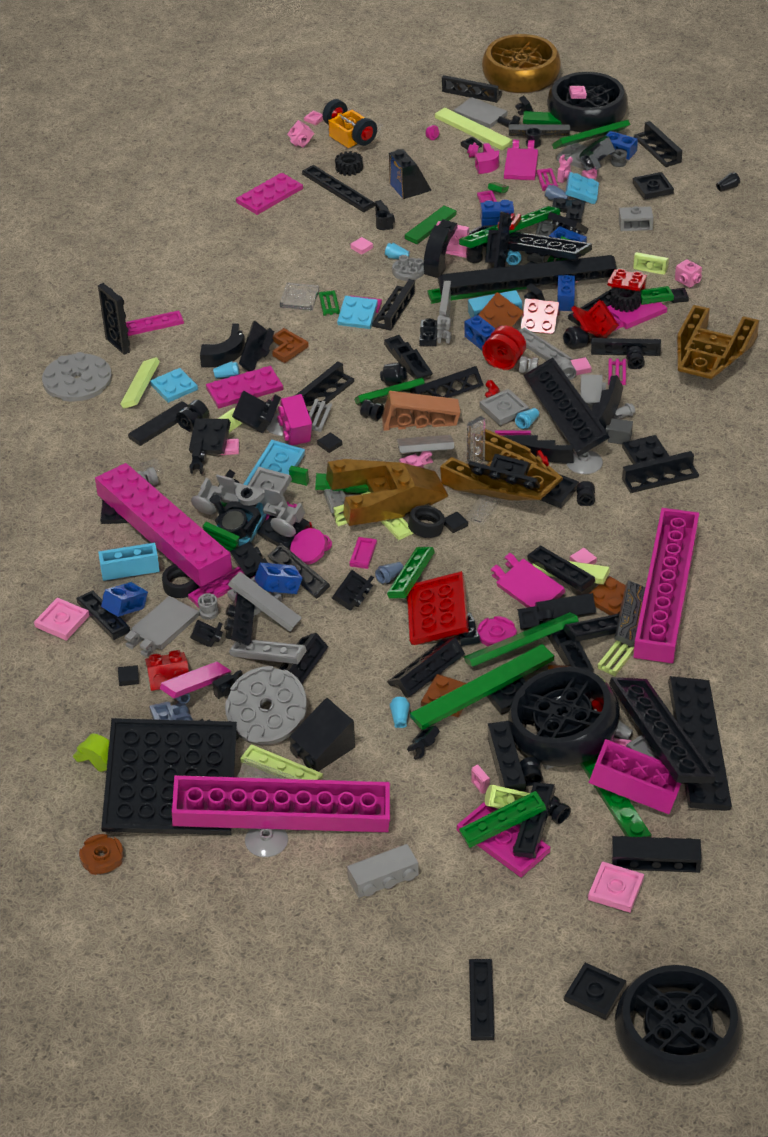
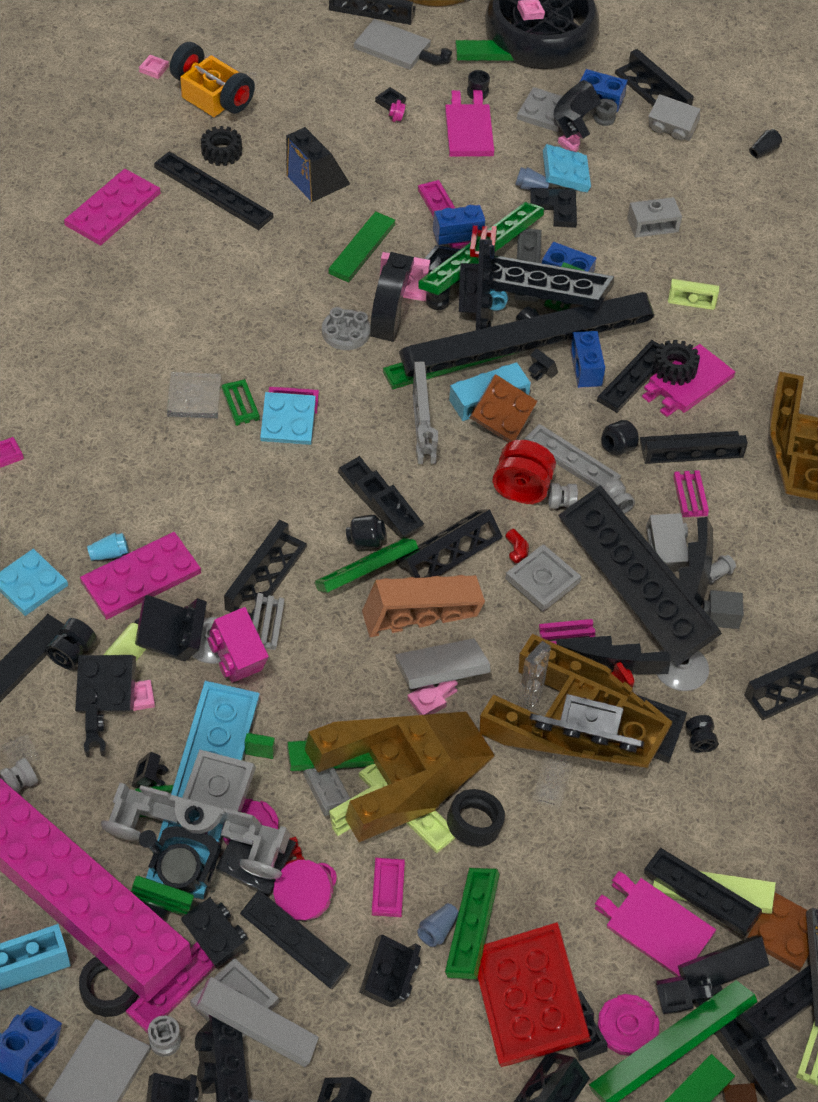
camera: 15 degrees left, 10 degrees up
(218, 354) = (101, 513): black arch -> none
(256, 346) = (147, 496): black bracket -> none
(278, 578) = (269, 968): blue brick -> none
(289, 344) = (198, 486): dark orange plate -> none
(300, 134) = (141, 99): bright pink brick -> none
(329, 442) = (293, 671): black tile -> none
(361, 245) = (268, 292): bright pink tile -> none
(372, 410) = (347, 603): black wheel -> none
(384, 218) = (293, 243): black plate -> none
(394, 251) = (322, 301): medium azure cone -> none
(396, 309) = (345, 403): black fence -> none
(428, 332) = (400, 446): black slope -> none
(432, 132) = (332, 83): dark pink plate -> none
(455, 522) = (518, 809): black tile -> none
(473, 128) = (388, 72): yellowish green tile -> none
(477, 330) = (479, 443): blue brick -> none
(487, 161) = (421, 128): dark pink brick -> none
(494, 186) = (446, 174): green tile -> none
(524, 105) = (453, 31): black tile -> none
(526, 418) = (581, 596): medium azure cone -> none
(540, 316) = (559, 403): bracket -> none
(544, 186) = (515, 166): dark pink tile -> none
(546, 130) = (494, 70): dark grey tile -> none
(564, 169) = (535, 141): bright pink plate -> none
(567, 223) = (569, 237): black plate -> none
(581, 365) = (638, 487): bright pink tile -> none
(583, 556) = (724, 859): bright pink tile -> none
(590, 134) = (560, 76): green tile -> none
(597, 320) = (644, 406): red bracket -> none
(627, 280) = (673, 333): red bracket -> none
(635, 357) = (712, 467): black wheel -> none
(644, 449) = (767, 641): black plate -> none
(653, 185) = (663, 156): black plate -> none
(656, 295) = (717, 355): green tile -> none
(666, 162) = (674, 118): none -> light grey brick
(680, 295) = (744, 346): black tile -> none
(688, 273) = (753, 310): bright pink brick -> none

